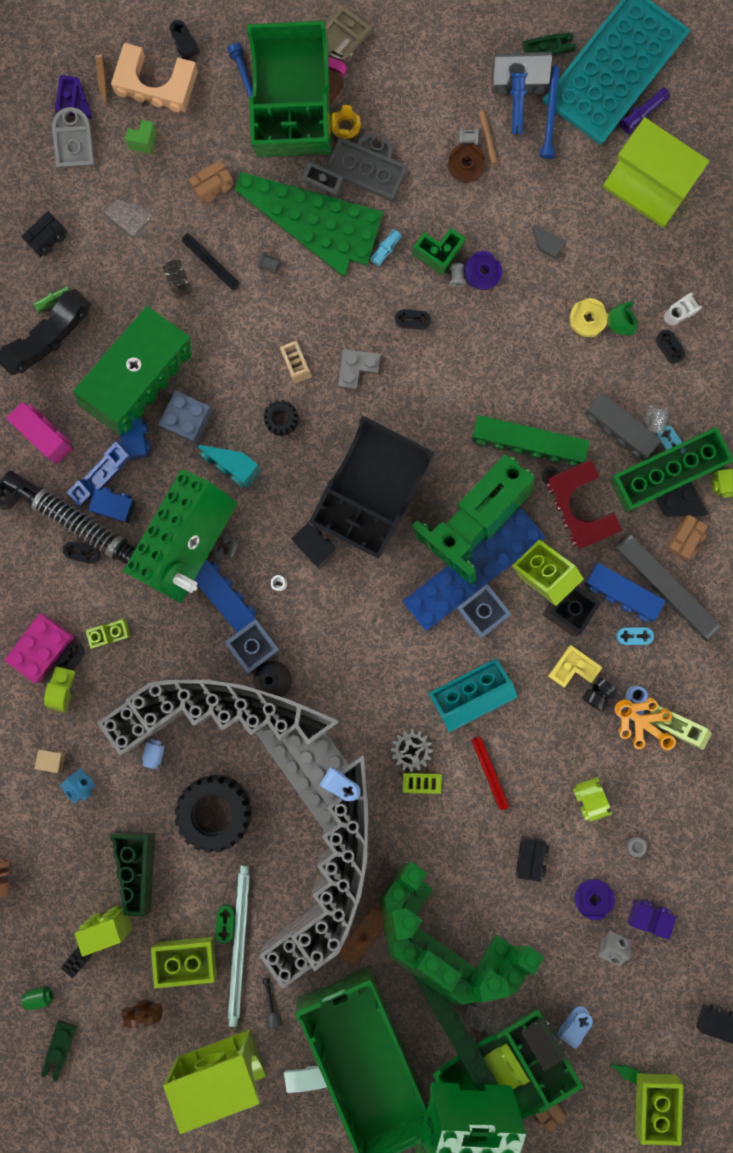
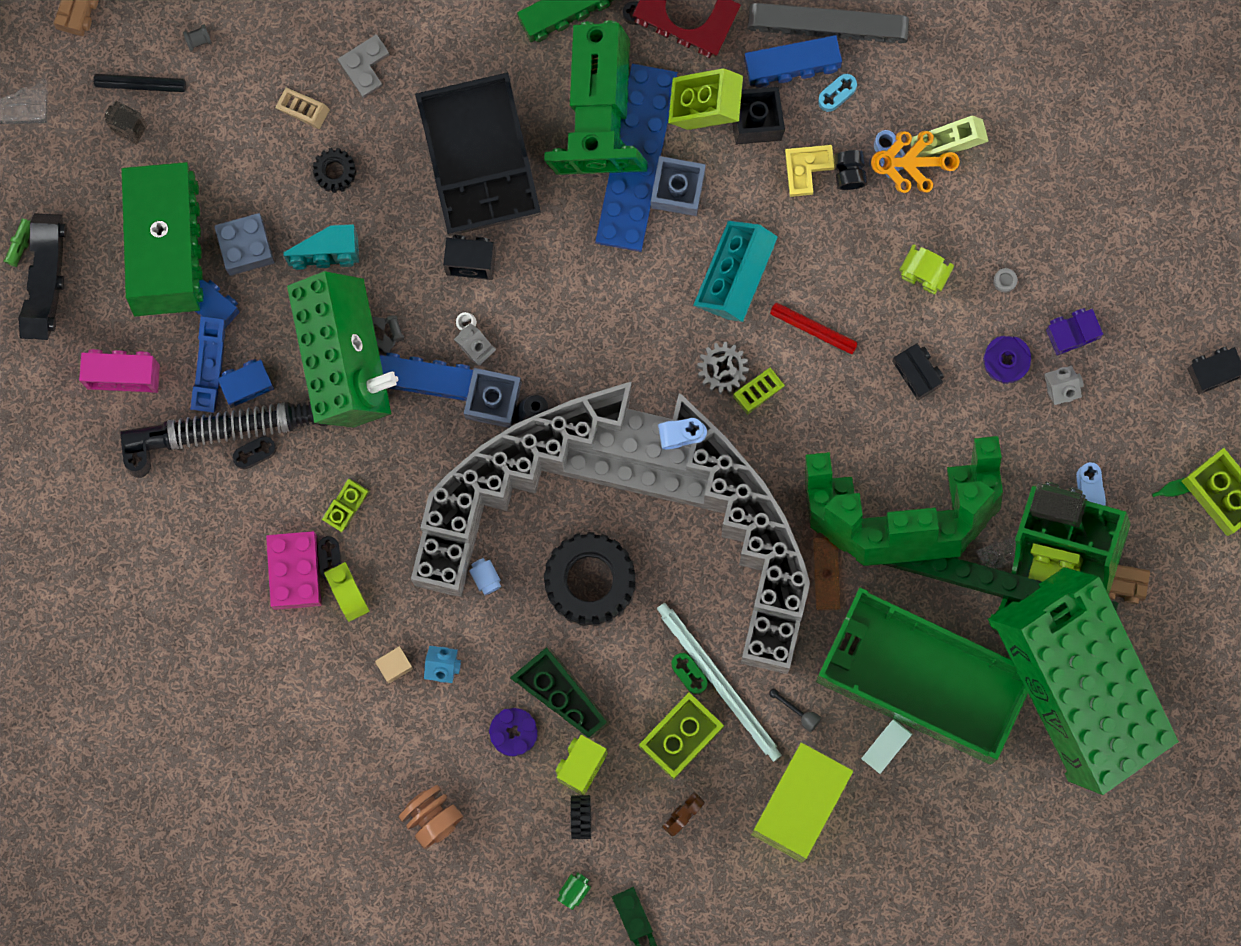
camera: 35 degrees left, 5 degrees down
(76, 862) = (519, 744): none -> dark purple plate
(271, 602) = (474, 344): none -> light grey brick

